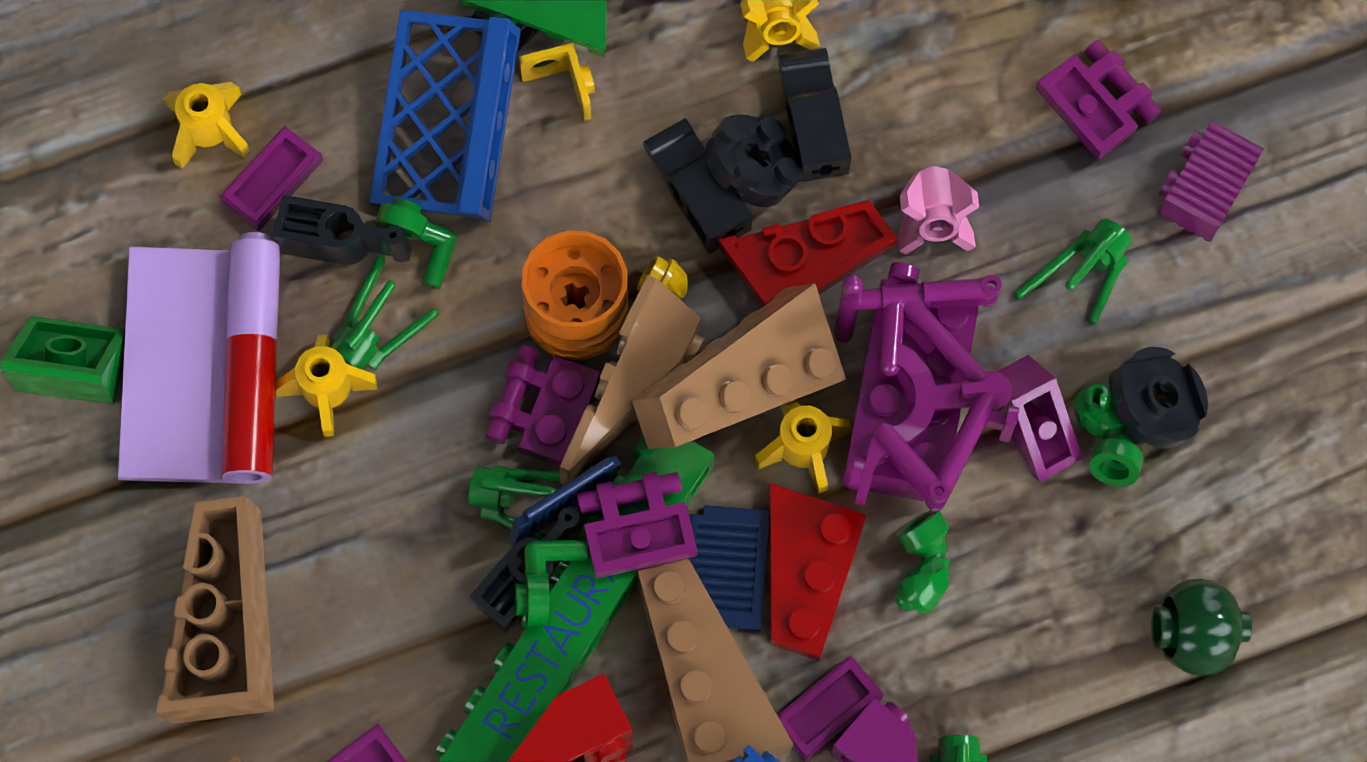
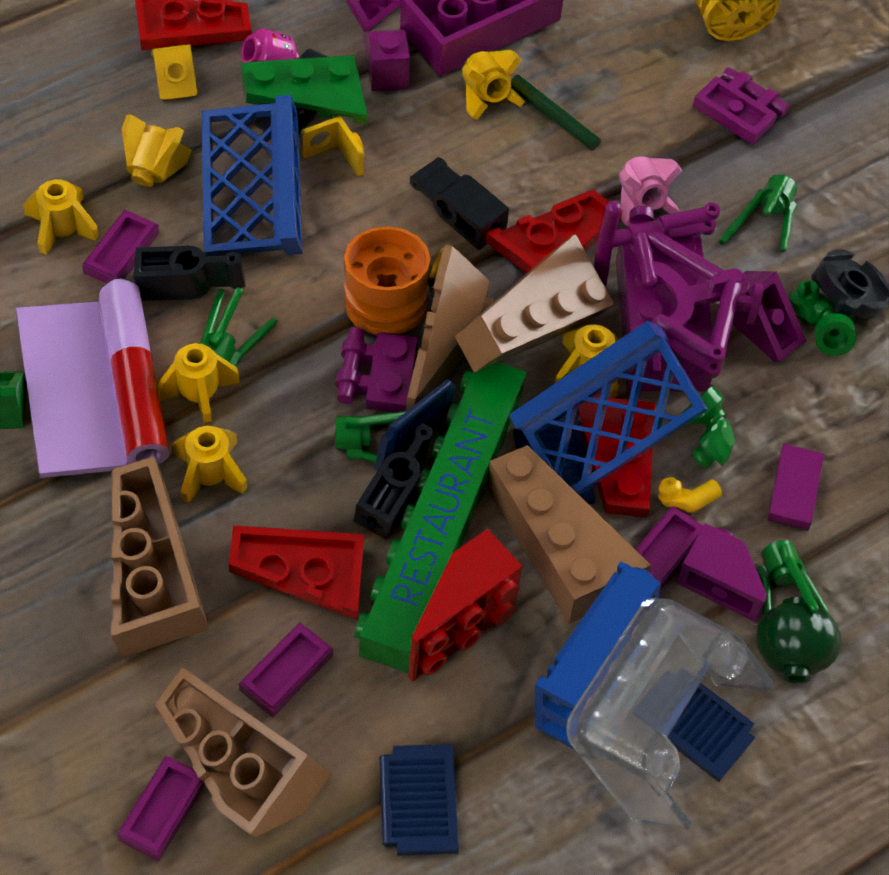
camera: 15 degrees left, 15 degrees down
(316, 506) = (208, 460): none -> yellow brick
(331, 53) = (152, 151): none -> yellow brick
(397, 650) = (302, 563): none -> red wing
(416, 227) = (252, 261): green plate -> none
(533, 597) = (413, 487): green plate -> none
(639, 538) = (483, 436): magenta plate -> none
(775, 164) = (500, 172): black plate -> none
(791, 492) = (598, 376): none -> blue fence
(814, 114) = (536, 145): black piece -> none
(854, 68) = (555, 112): none -> dark green bar
(870, 650) = (685, 499): none -> yellow arm
(1008, 657) = (795, 487): none -> magenta tile
(1209, 181) = (840, 143): magenta brick -> none

